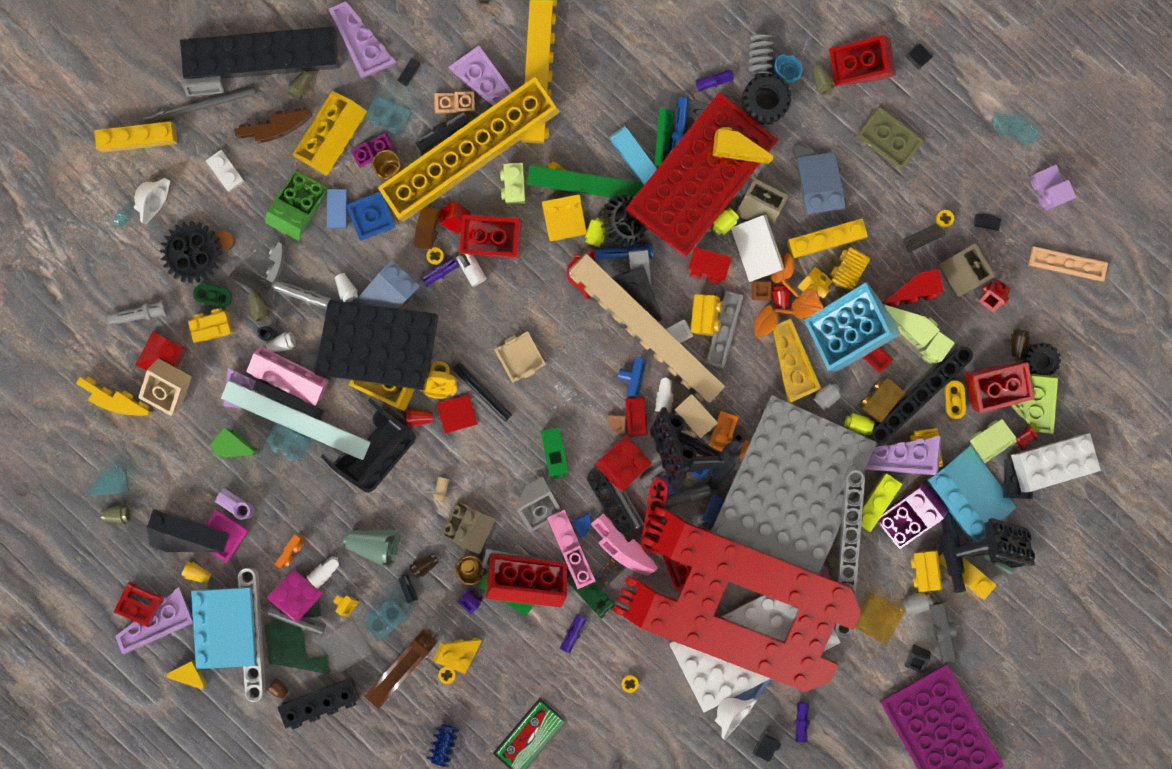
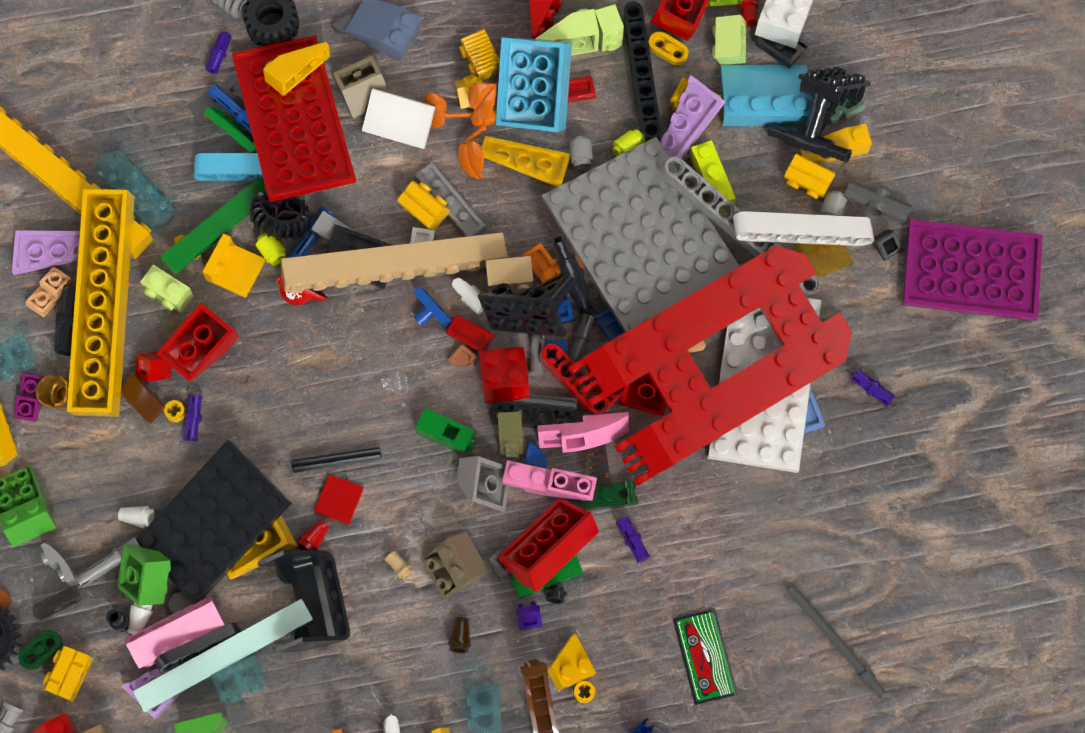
camera: 55 degrees left, 15 degrees down
(257, 307) = (88, 614): olive cone -> none
(308, 326) = (143, 575): none -> bright green slope
(336, 208) = (56, 470): medium blue tile -> none
(370, 216) = (89, 442): blue plate -> none
(374, 544) = (403, 667): sand green cone -> none
(389, 288) = (169, 470): sand blue slope -> none
(407, 589) = (471, 669): black piece -> none
(440, 383) = (299, 488): yellow tile -> none
(469, 569) = (497, 593): pearl gold hair -> none
(472, 272) = (217, 385): white hinge -> none
(498, 608) = (555, 594): none -> black plate
(520, 357) = (330, 400): tan piece -> none
(570, 101) = (149, 201): none -> clear light blue brick
(580, 502) = (510, 435): none -> olive brick
(630, 689) = (724, 514): yellow bush -> none
(708, 265) = (380, 169): red brick -> none
(725, 221) = (352, 130): neon yellow brick -> none
(731, 713) = (817, 443): white hat -> none
(761, 290) = (440, 144): dark orange tile -> none
(766, 747) = (873, 436): black panel -> none
(781, 296) = (458, 129): red cone -> none
(827, 239) = (438, 54): yellow brick -> none
(880, 597) = (802, 228): none -> white beam
(882, 399) = (621, 107): pearl gold brick -> none
(912, 515) = (748, 156): slope -> none

